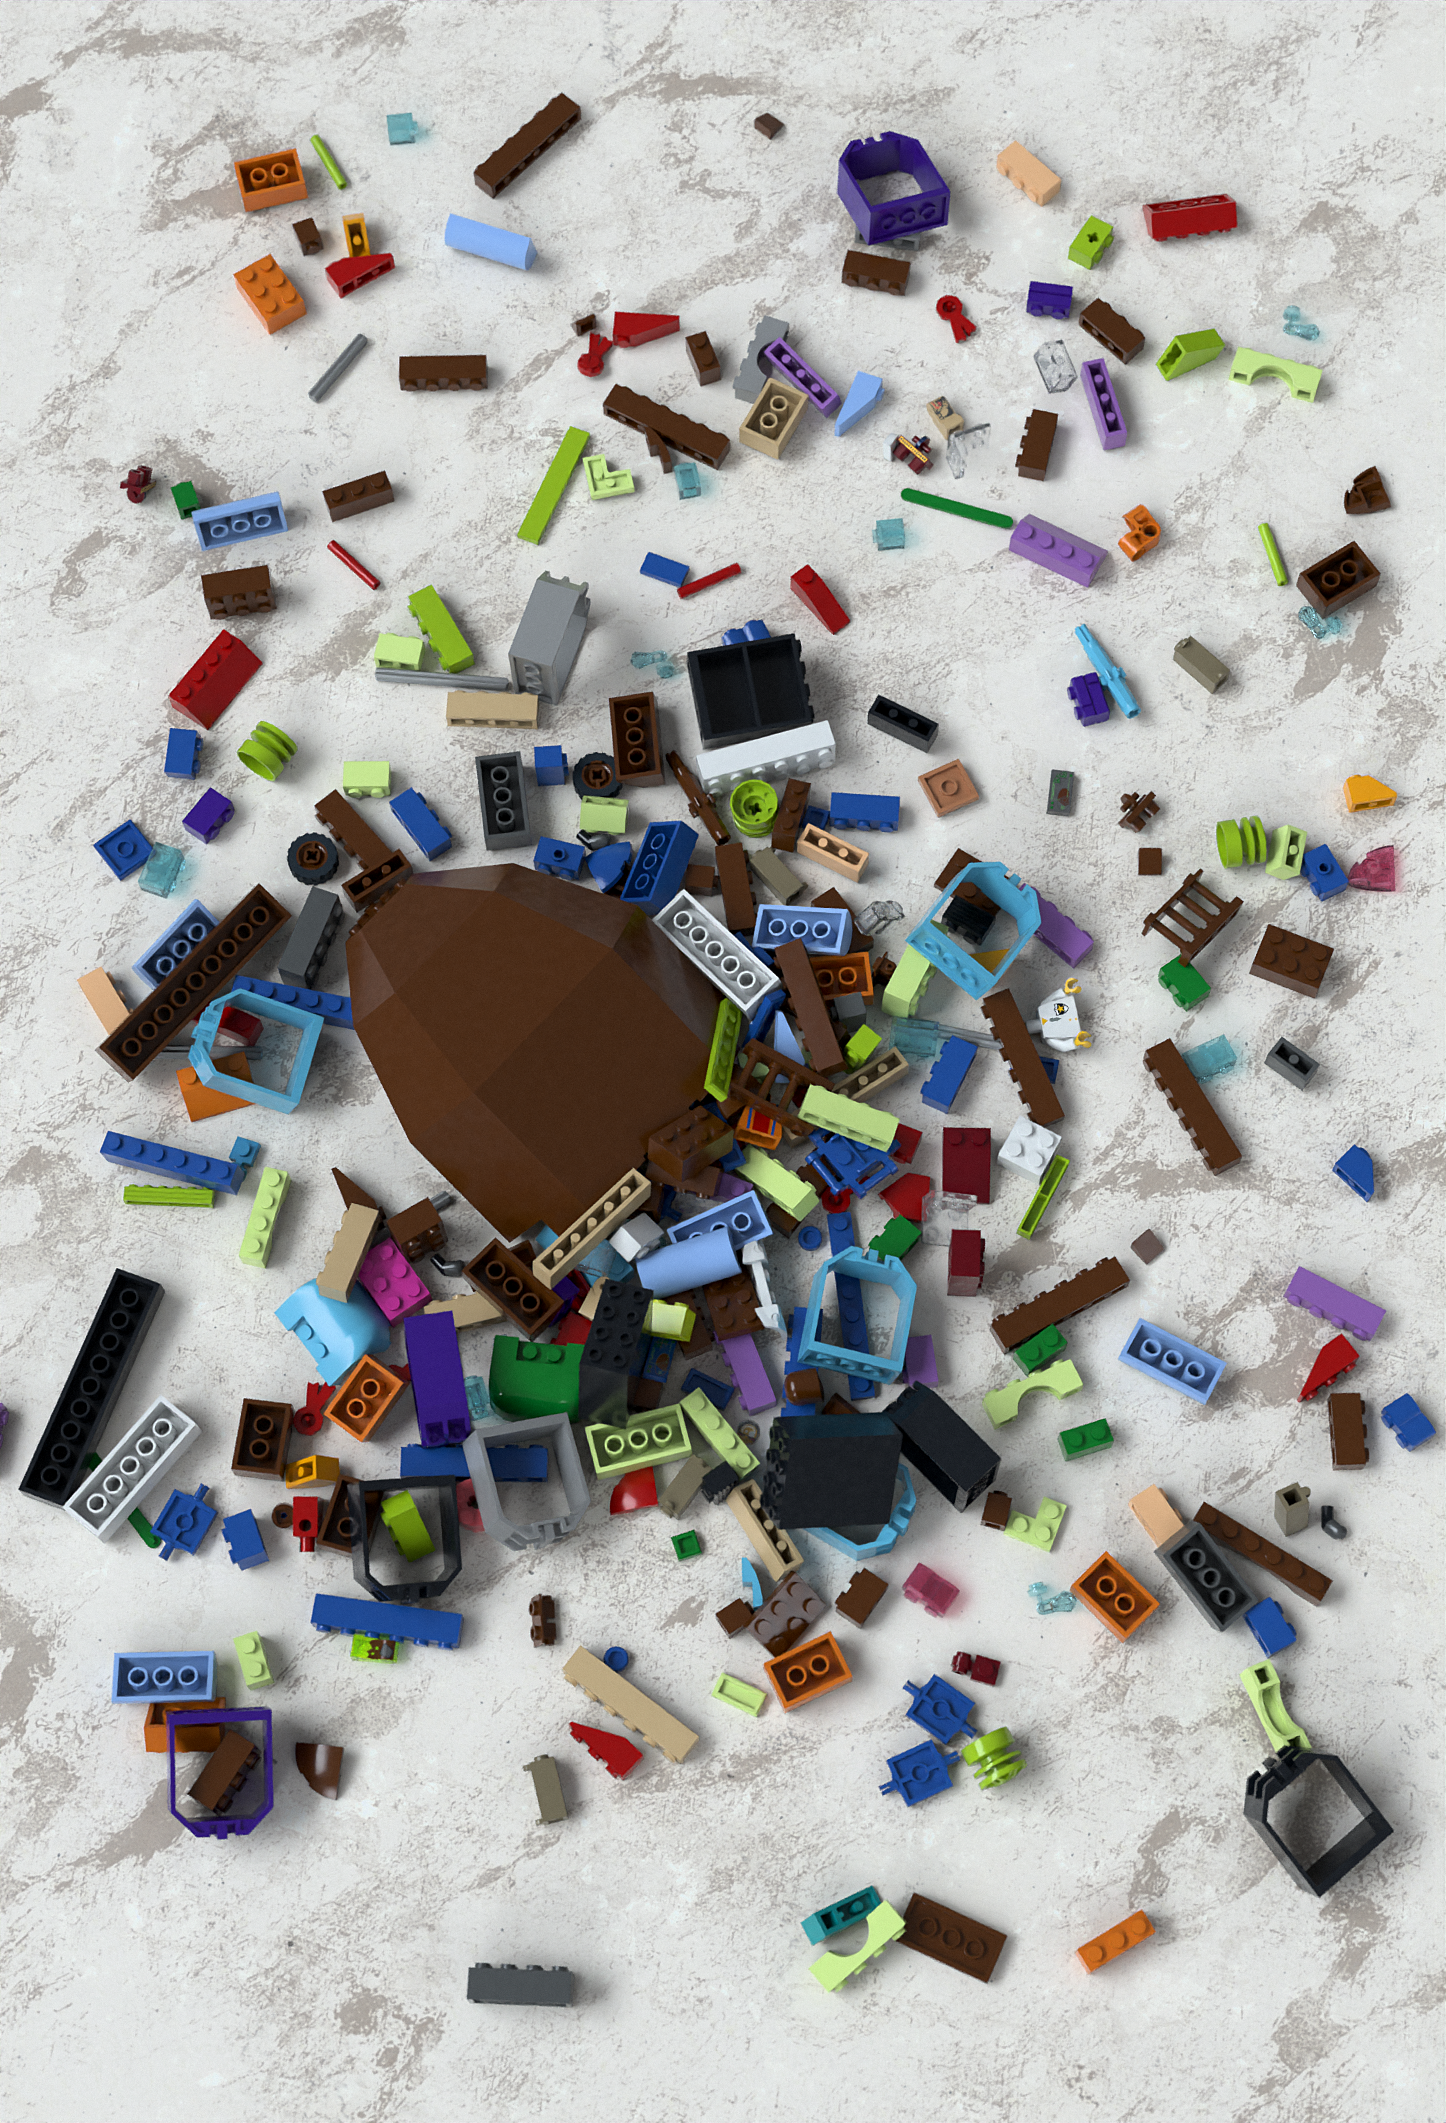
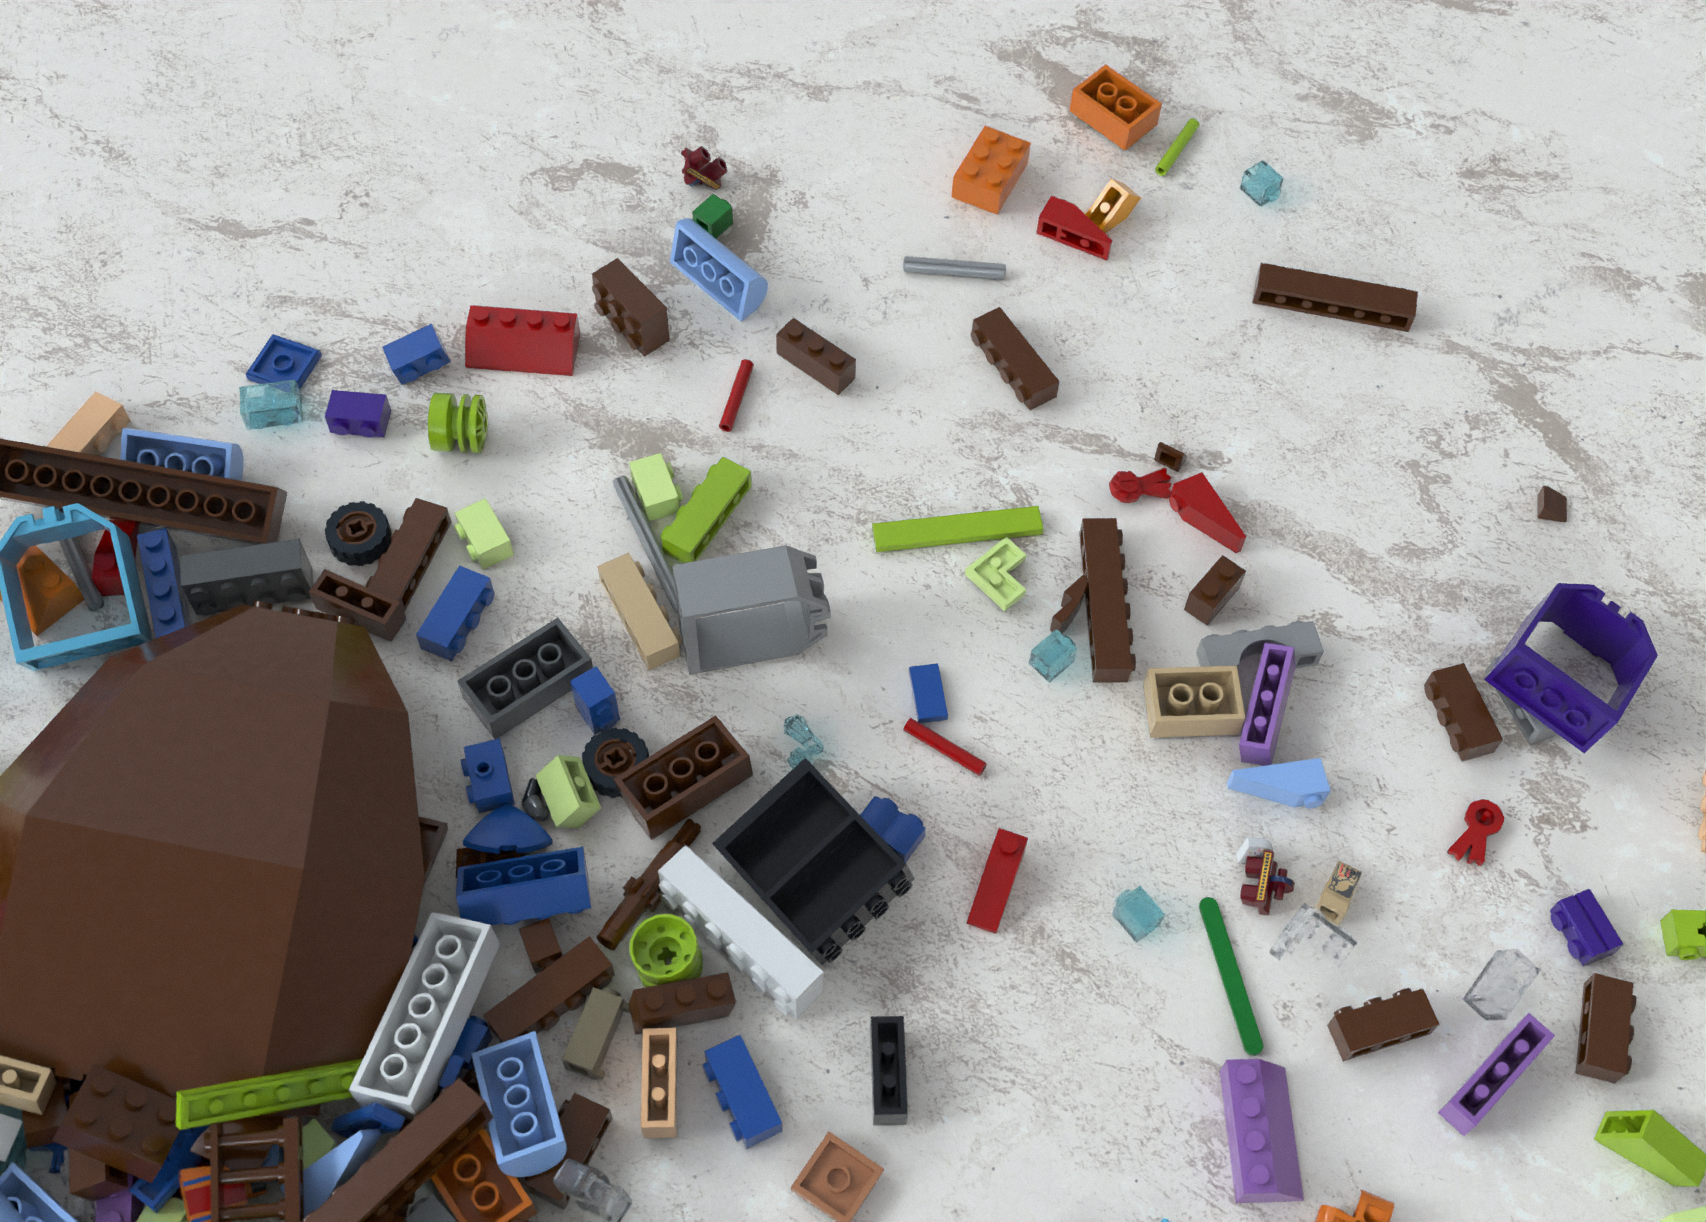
camera: 55 degrees right, 10 degrees down
(307, 236) = (1079, 169): reddish brown brick -> none
(490, 242) = (1192, 319): light blue brick -> none
(816, 817) = (701, 1037): blue tile -> none

